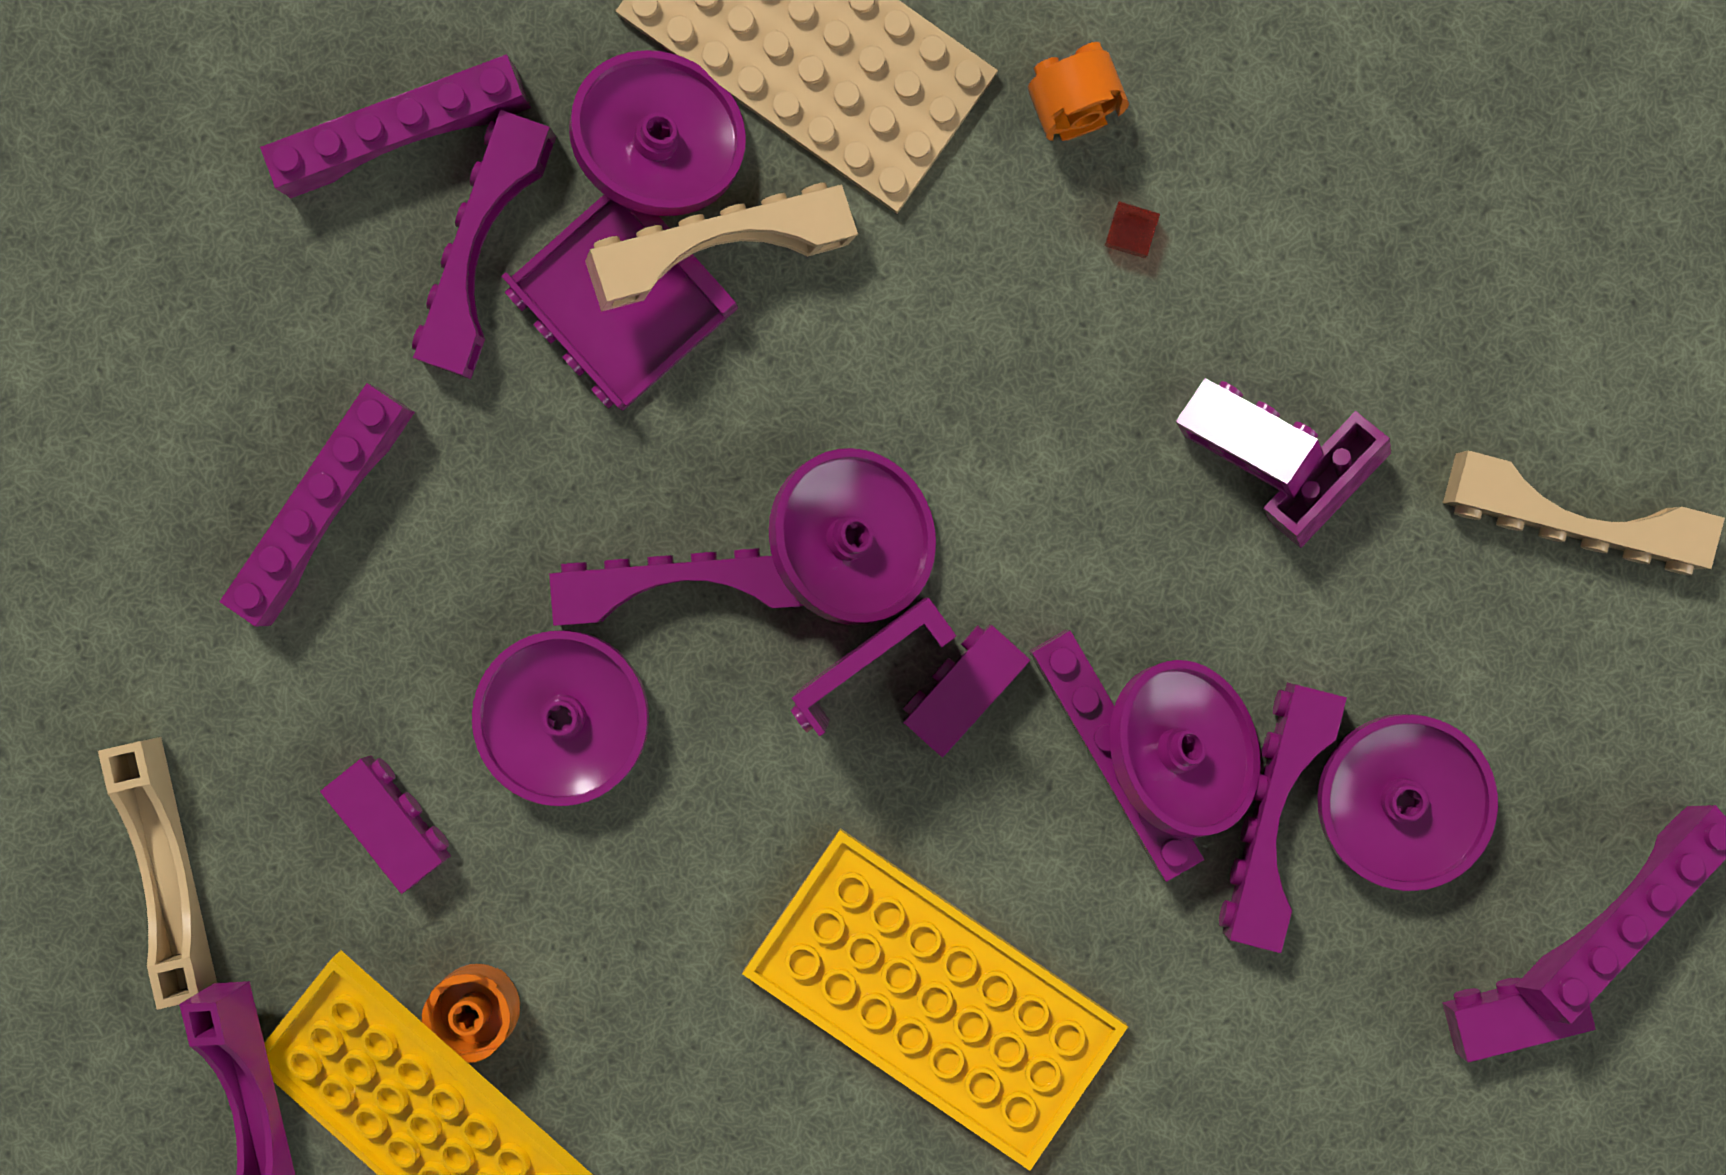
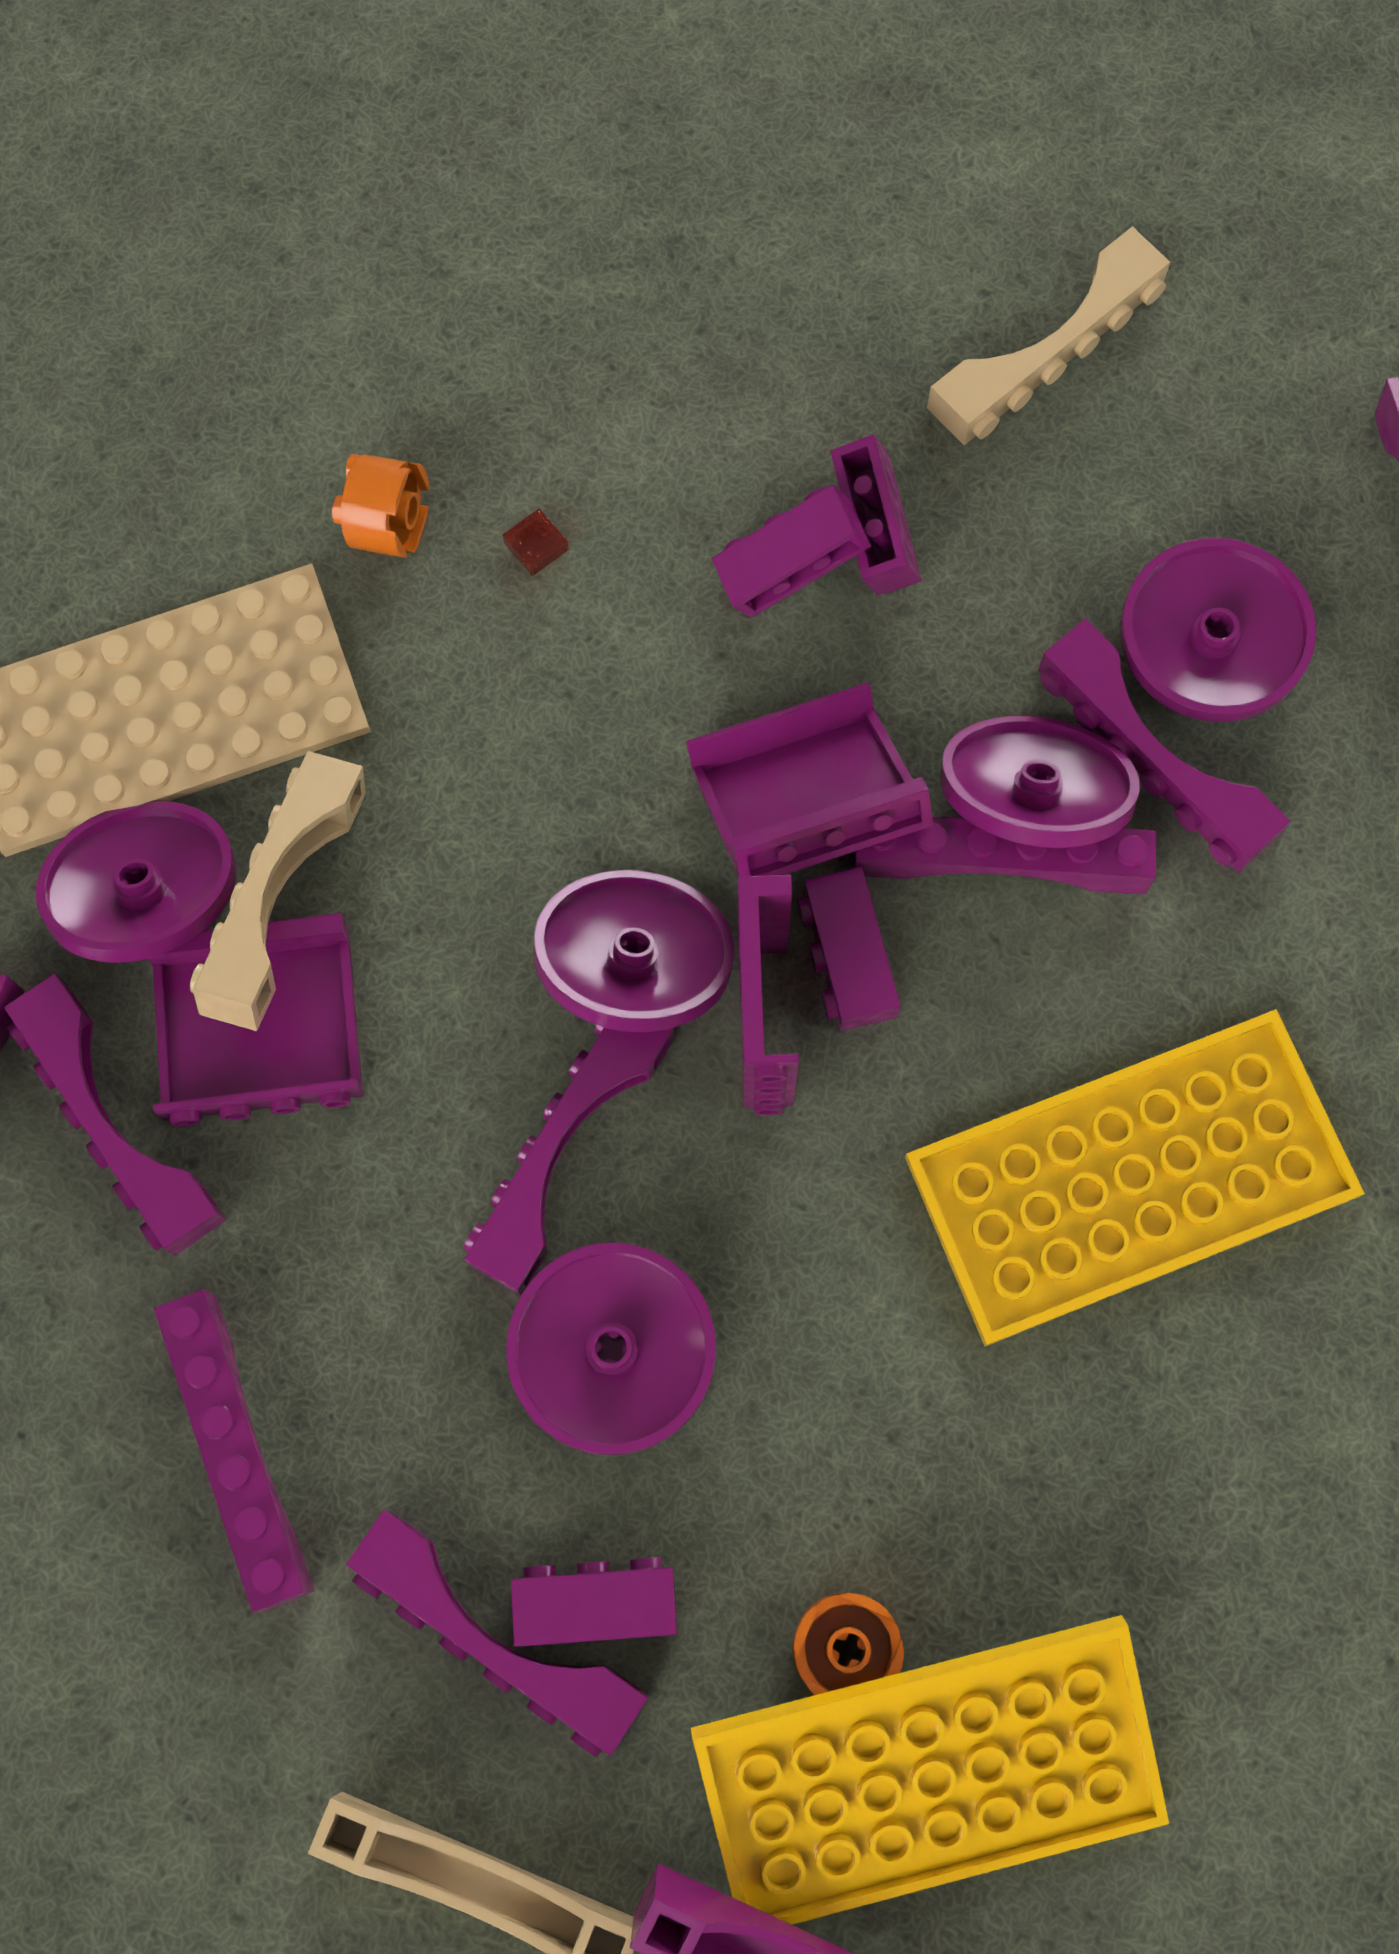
camera: 55 degrees left, 15 degrees down
(324, 859) = (407, 1569): none -> magenta arch
(1065, 578) = (807, 784): none -> magenta panel

